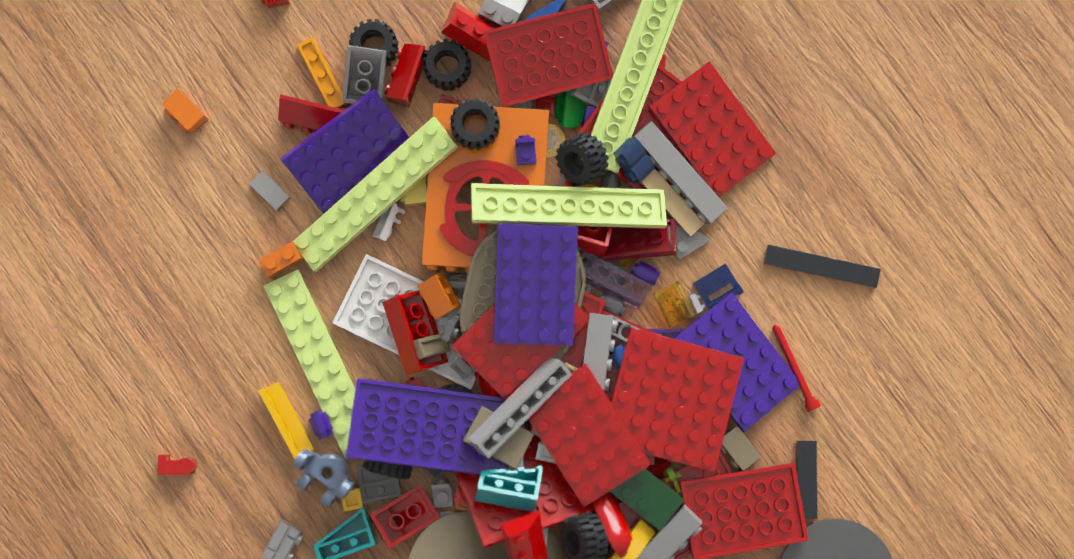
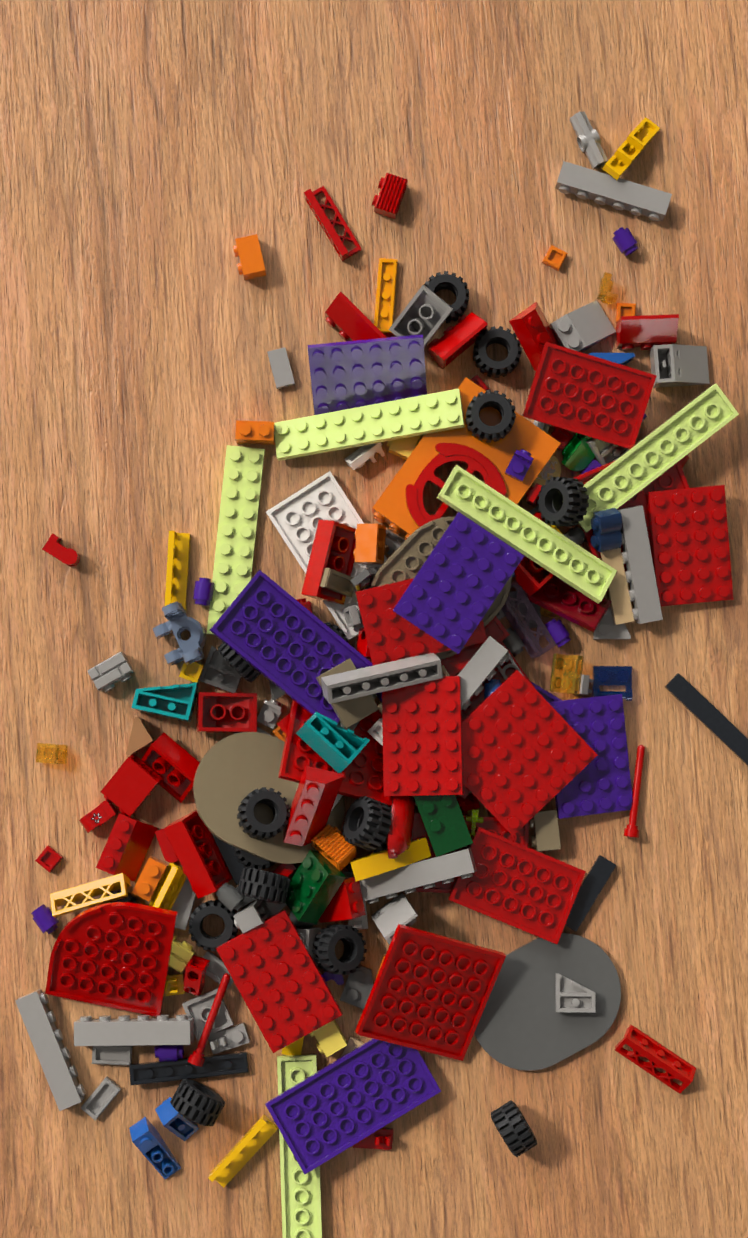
camera: 30 degrees right, 0 degrees up
(232, 43) = (326, 223): none -> red fence
(552, 169) = (532, 494): none -> red plate

